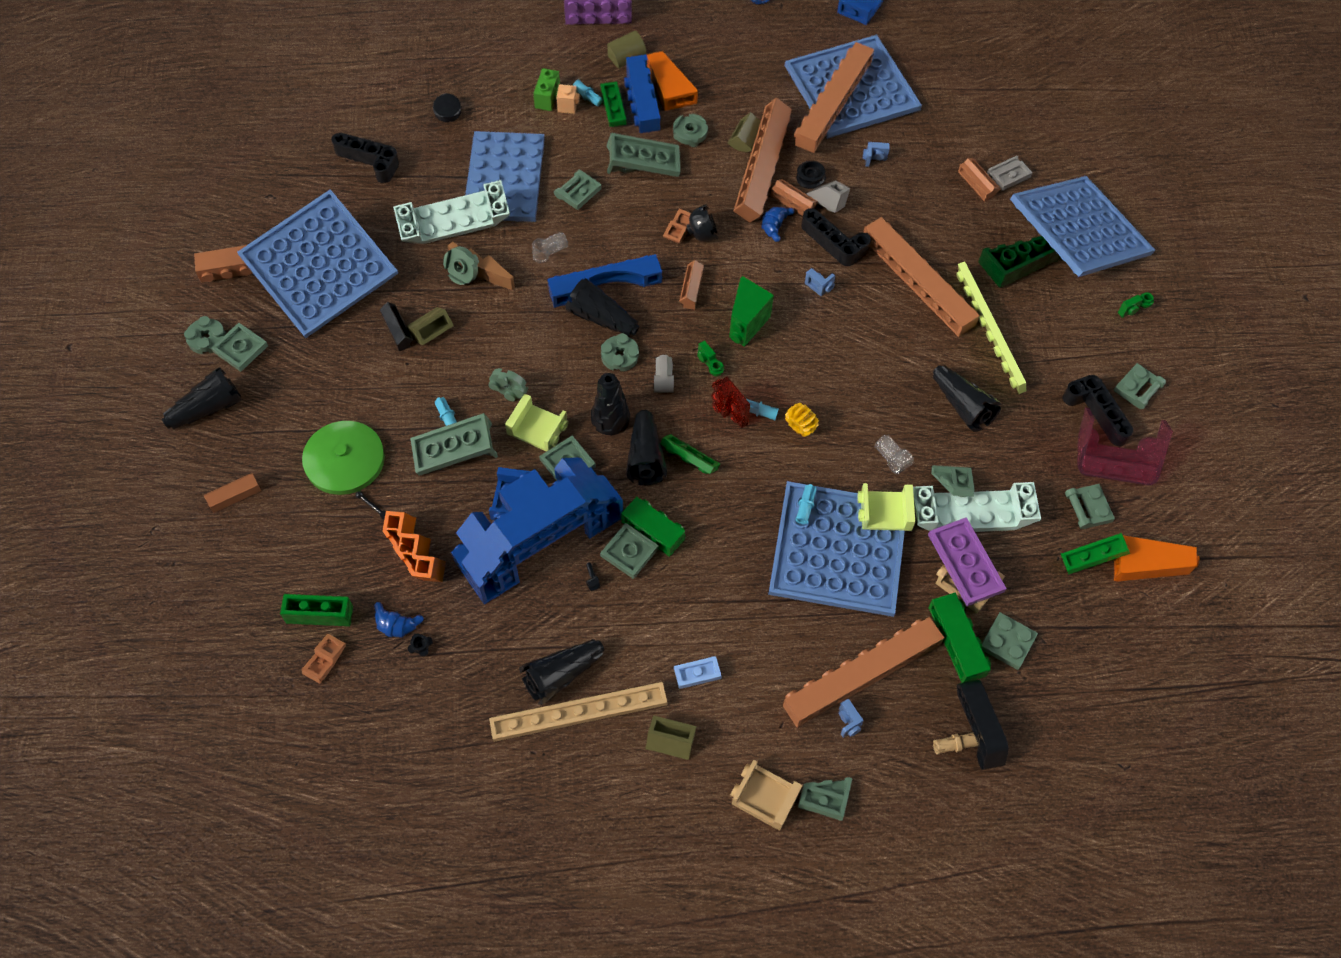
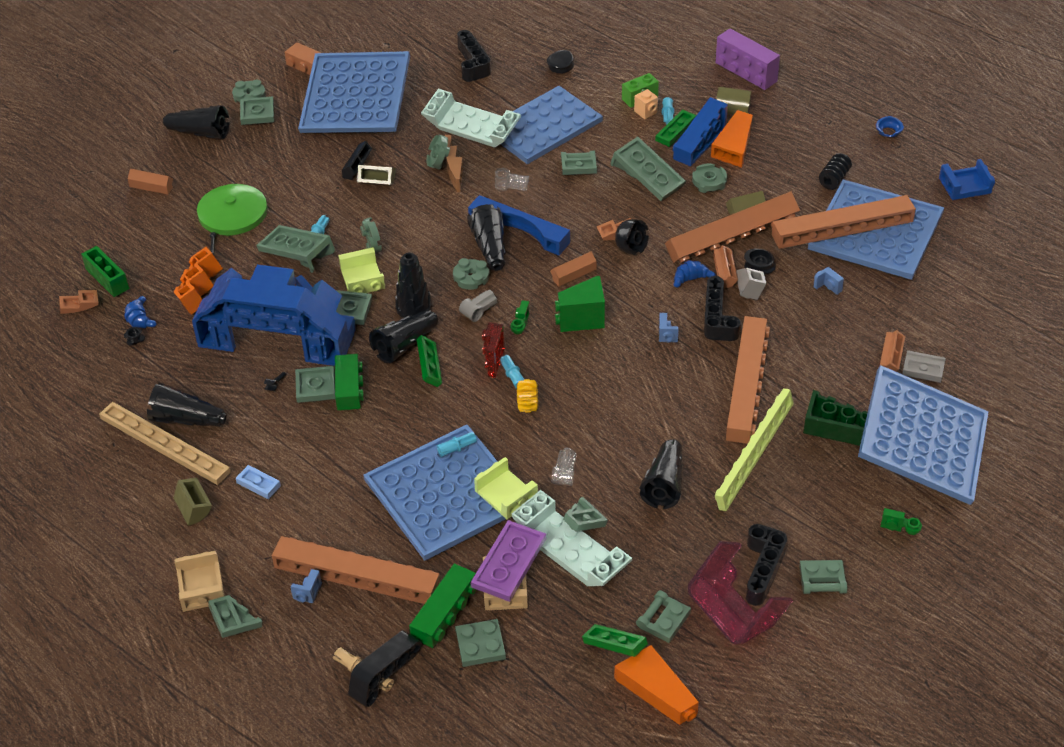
camera: 50 degrees right, 15 degrees down
(772, 58) = (835, 171): none -> black piece

